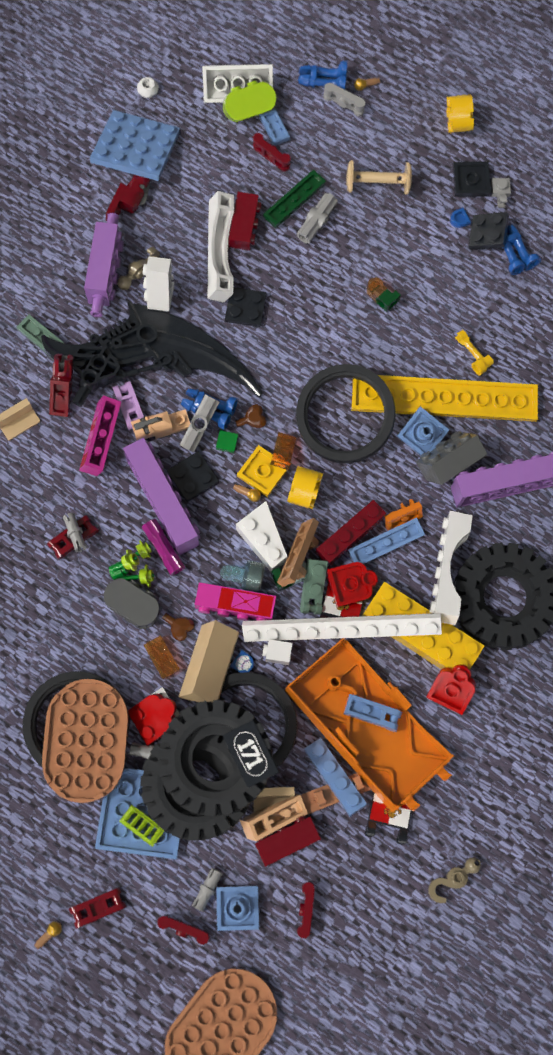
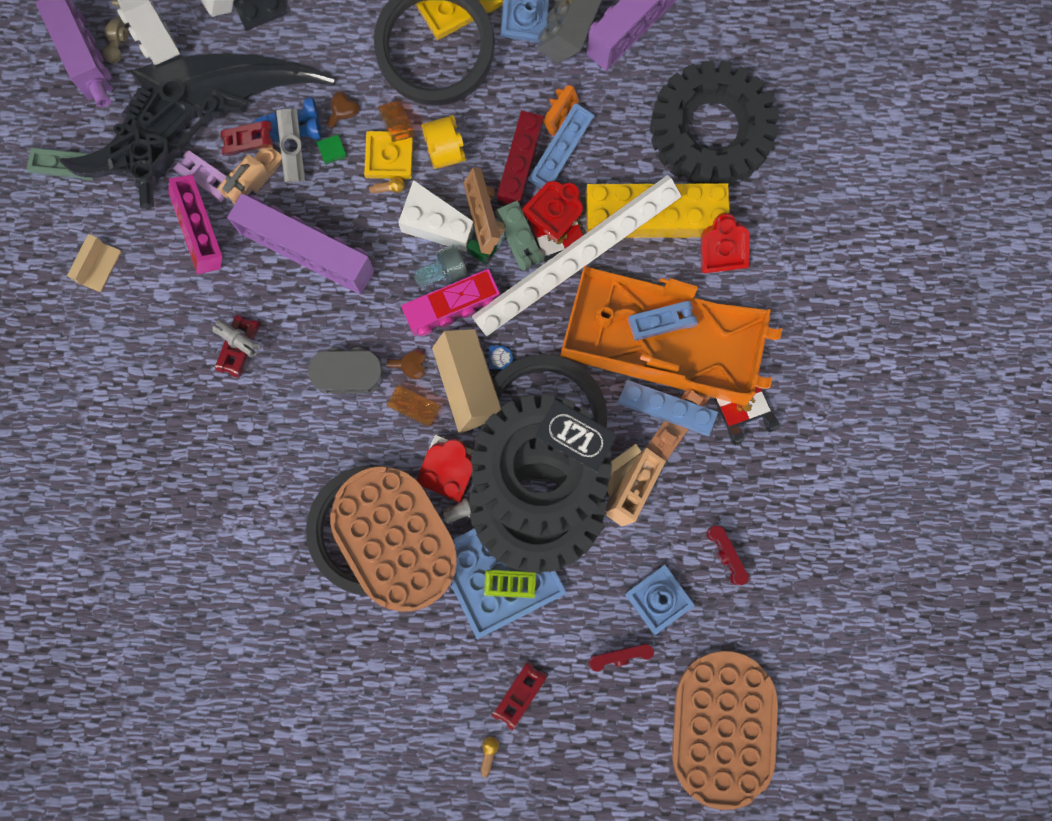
camera: 30 degrees left, 5 degrees up
(61, 385) = (117, 198): dark red plate -> none
(130, 561) = (315, 330): lime plant -> none
(169, 557) = (324, 289): magenta axle -> none
(173, 398) = (245, 138): none -> dark red plate
(192, 476) = (321, 205): black plate -> none
(207, 889) = (617, 602): light grey pin -> none
(277, 652) = (527, 323): white brick -> none
(287, 840) = (664, 501): dark red brick -> none
(447, 600) = (660, 159): white arch -> none
(455, 878) = (848, 428): dark tan piece -> none

